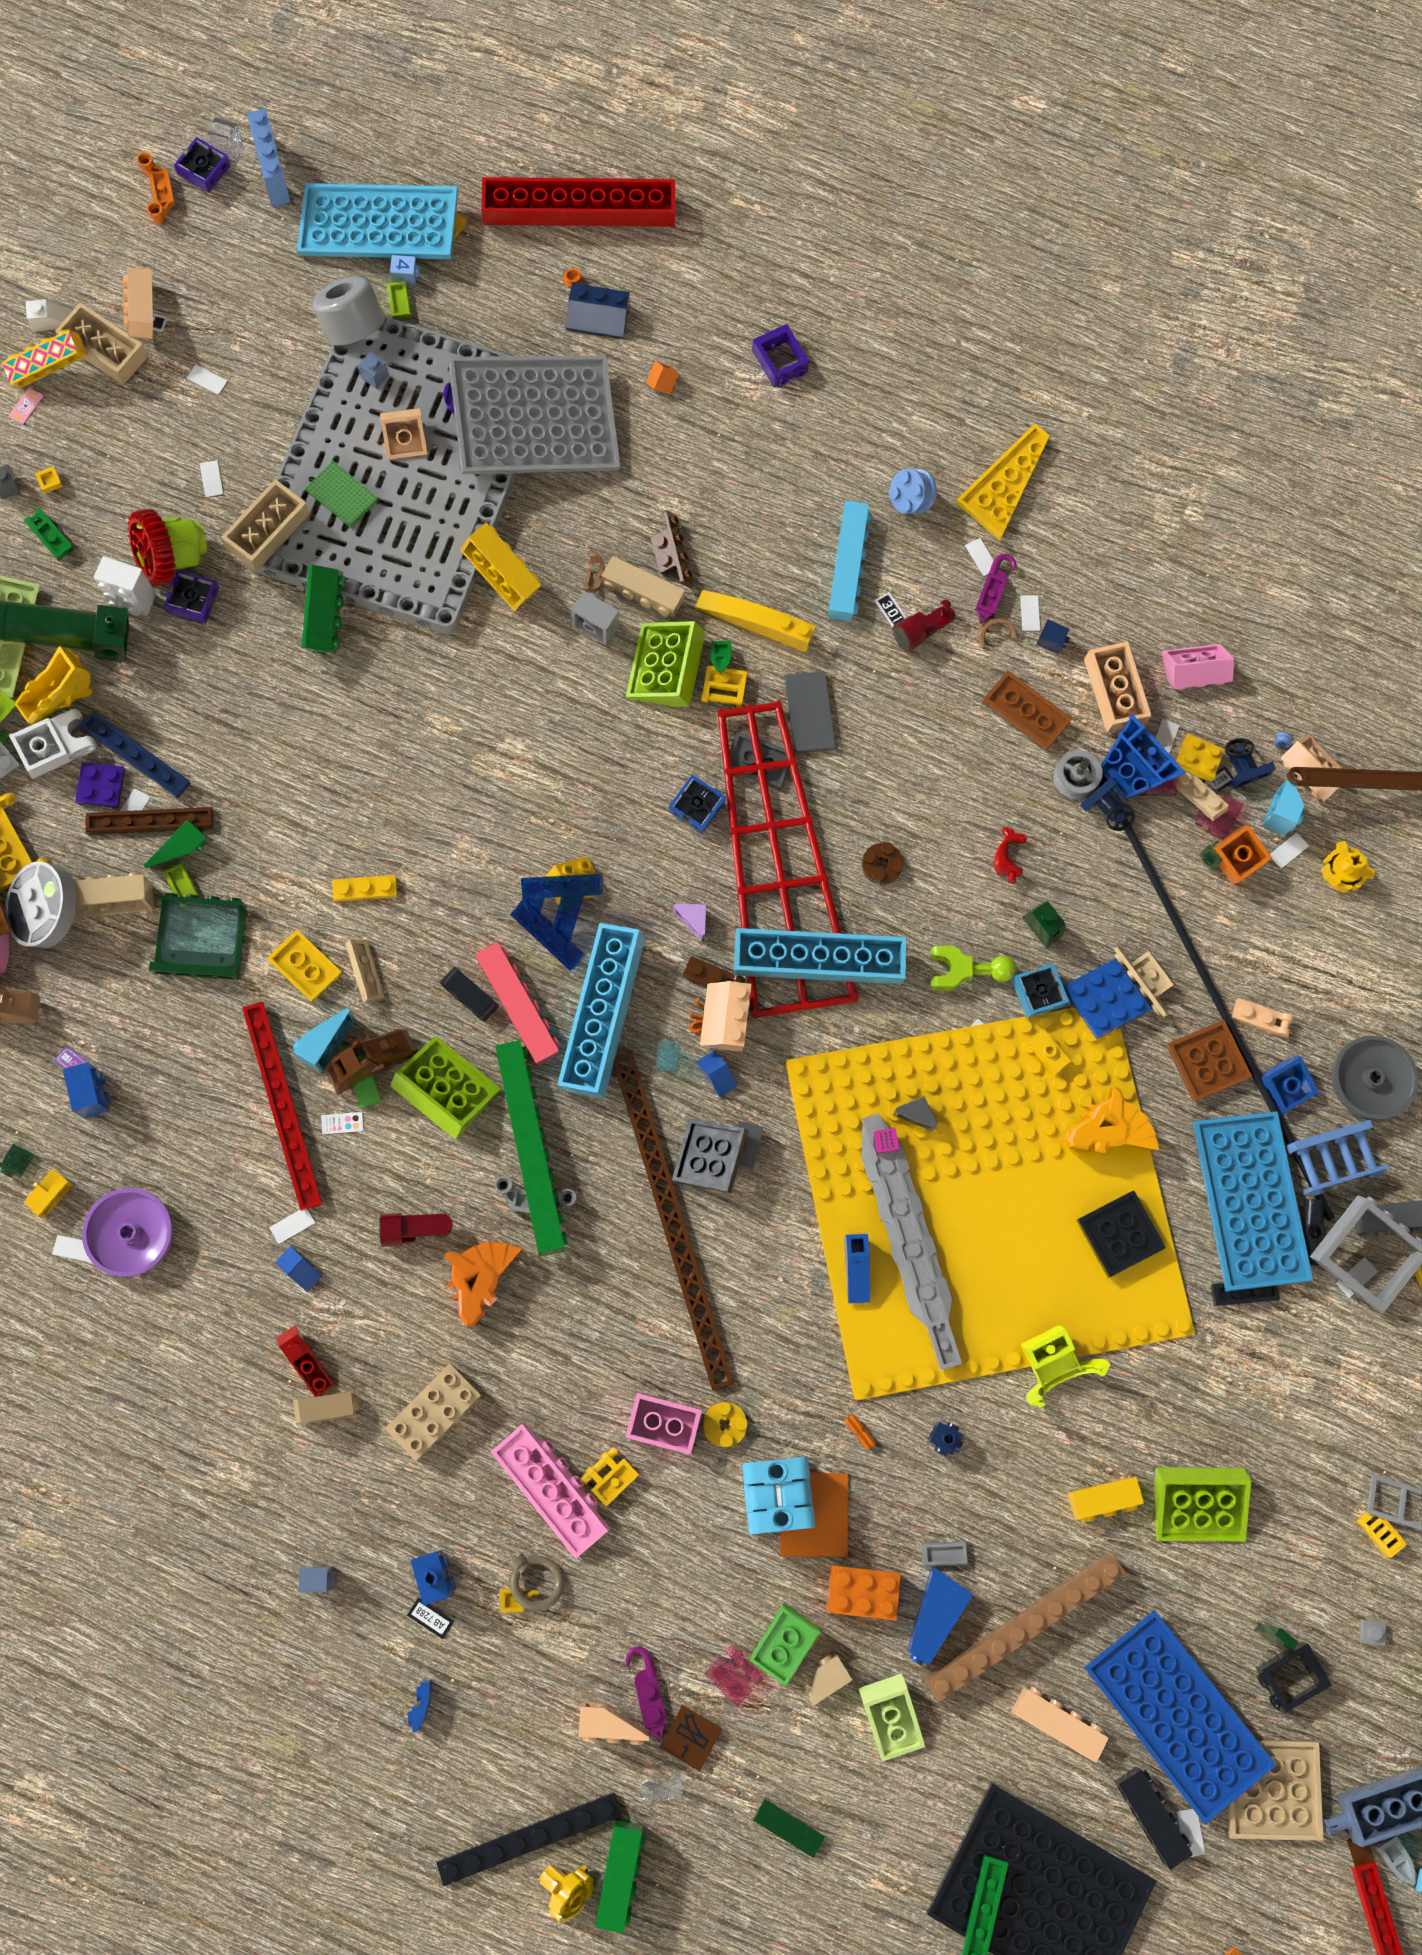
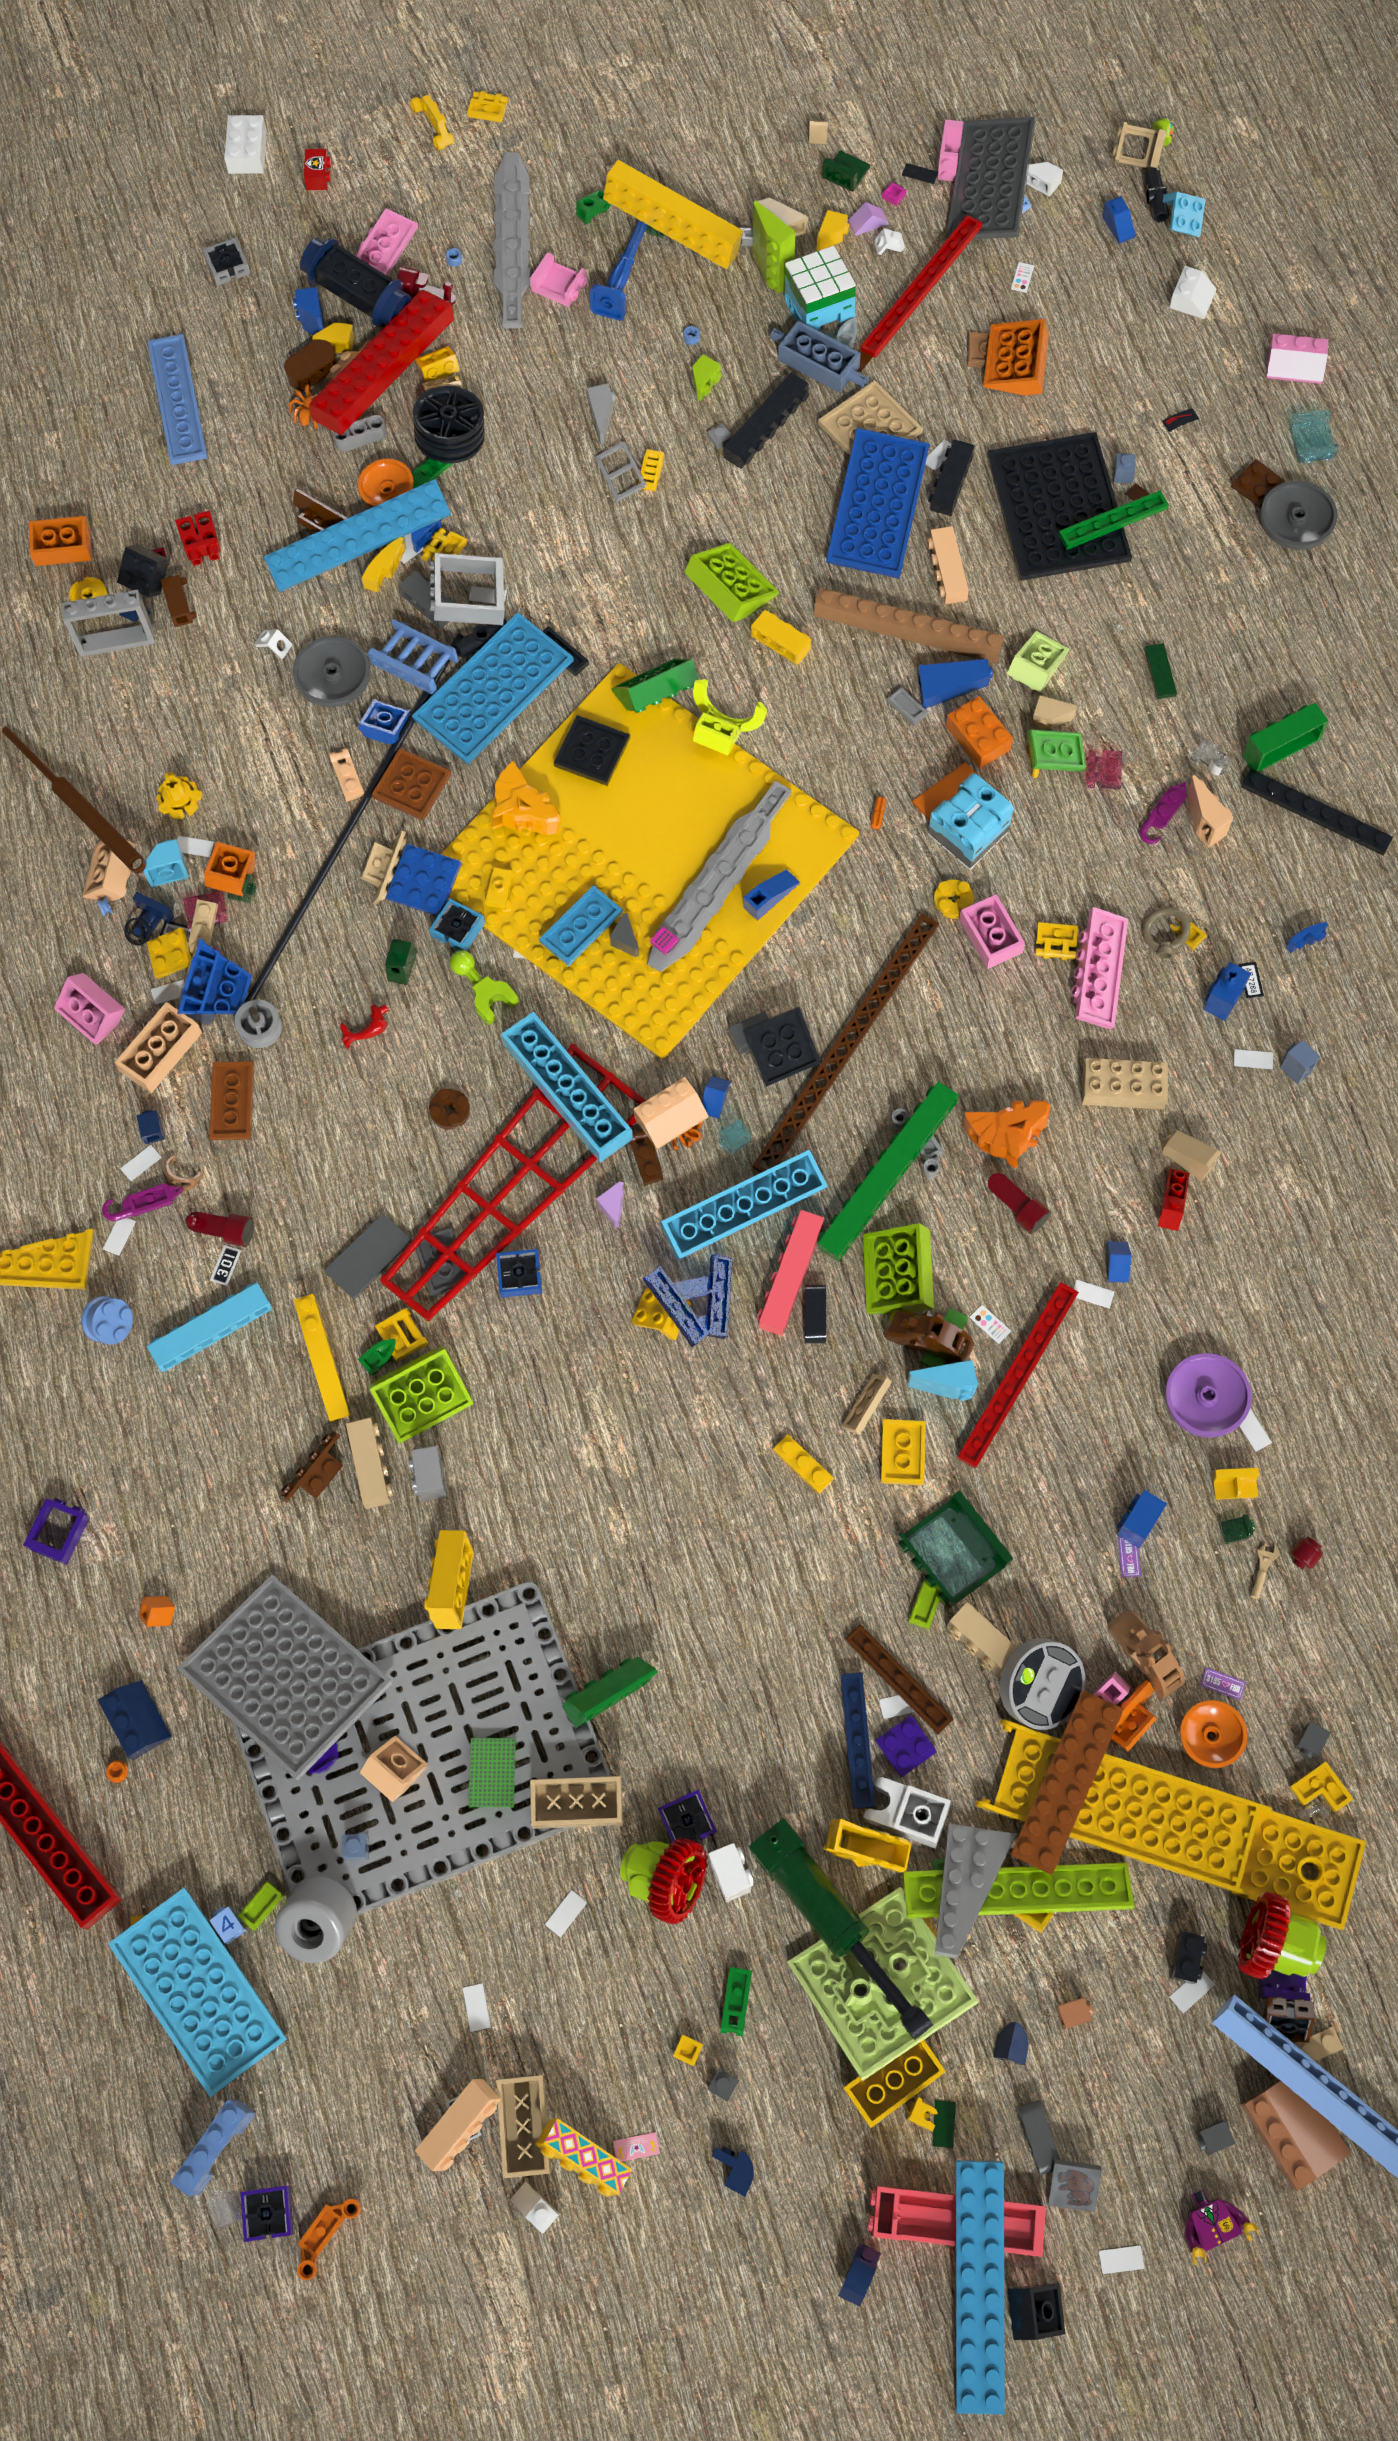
camera: 120 degrees left, 5 degrees down
(182, 842) = (896, 1631): green slope -> none
(361, 1549) = (1253, 1059): none -> white sticker
(567, 1891) = (1324, 760): yellow piece -> none
(594, 558) = (405, 1506): medium nougat helmet -> none
(690, 1737) = (1165, 766): reddish brown tile -> none
(937, 1438) = (834, 755): dark blue brick -> none
(957, 1087) = (581, 925): none -> dark azure plate
(1110, 805) = (264, 982): dark blue piece -> none
(1143, 1341) = (656, 684): none -> green slope
(1276, 1636) = (778, 477): dark green tile -> none
(1313, 1667) = (788, 472): black window -> none
(1356, 1691) = (766, 420): none -> black brick

